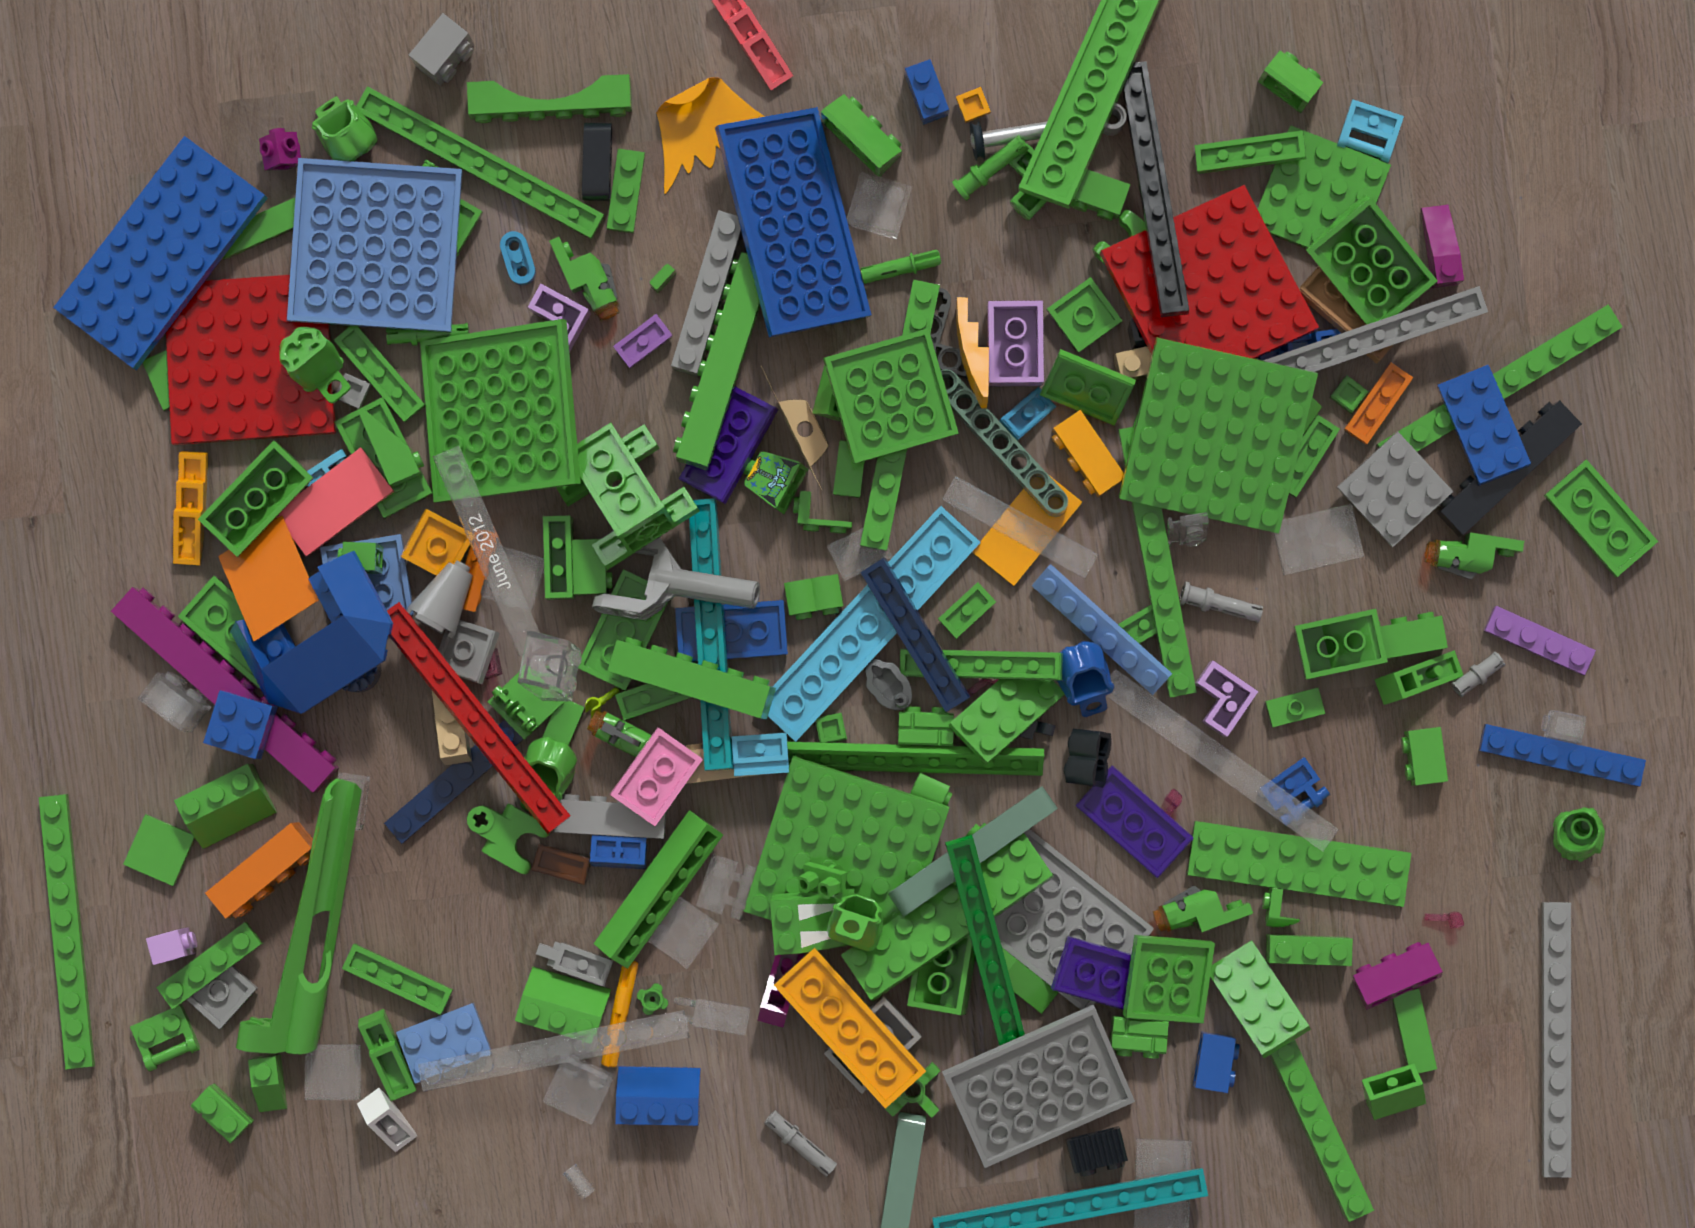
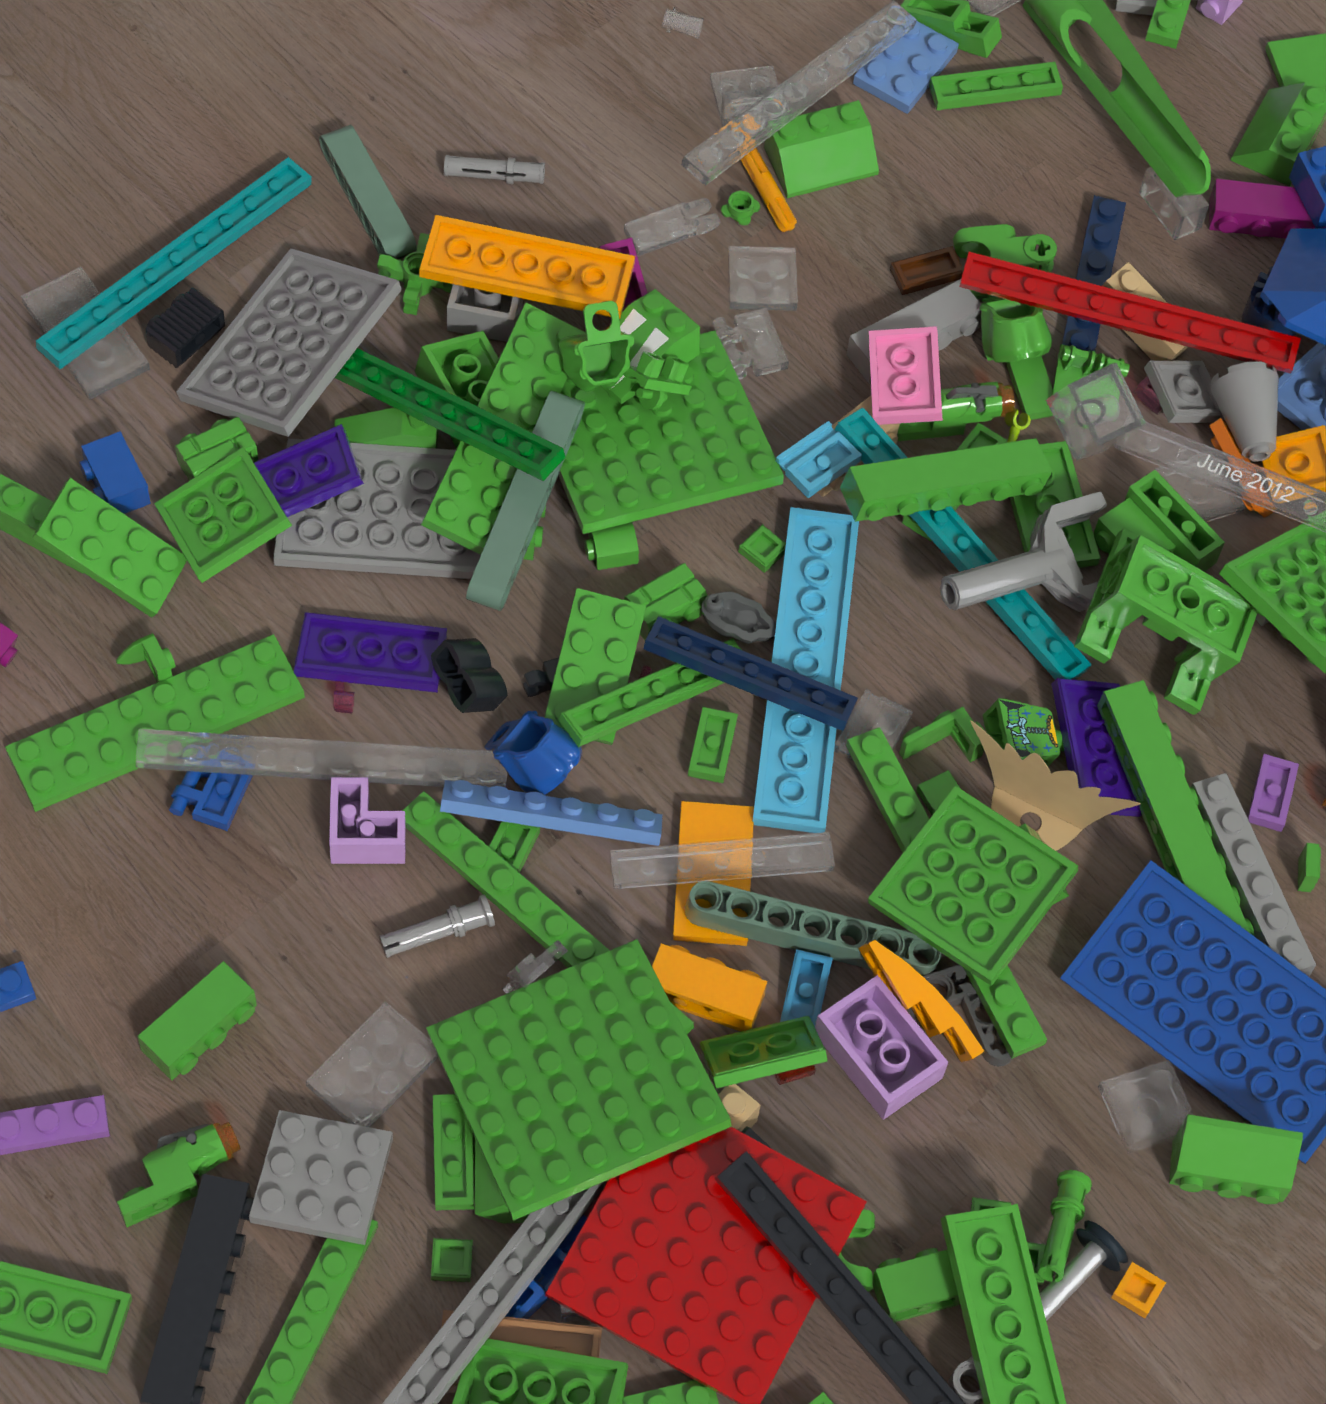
camera: 135 degrees right, 25 degrees down
(261, 871) = (1204, 76): orange brick -> none
(576, 962) = (841, 194): light grey hinge -> none
(618, 852) = (881, 301): blue hinge -> none
(658, 889) = (816, 295): bright green brick -> none
(658, 1096) = (663, 126): blue slope -> none
(747, 630) = (912, 584): blue plate -> none
(814, 596) = (885, 656): bright green brick -> none
(900, 266) = (1077, 1046): bright green axle -> none
(917, 758) = (700, 542): bright green plate -> none
(926, 91) = (1202, 1264): blue brick -> none
(1084, 315) = (827, 1137): bright green plate -> none
(1198, 907) = (233, 608): bright green plate -> none
(1295, 707) = (273, 876): bright green plate -> none
(1309, 950) = (85, 637): bright green brick -> none
(1340, 644) = (271, 956): bright green slope -> none
(1378, 403) = (409, 1269): orange plate -> none
(1419, 677) = (148, 991): bright green slope -> none
(1425, 756) = (85, 912): bright green brick -> none
(1478, 674) = (79, 1041): light grey pin -> none
(1483, 425) = (263, 1317): blue plate -> none

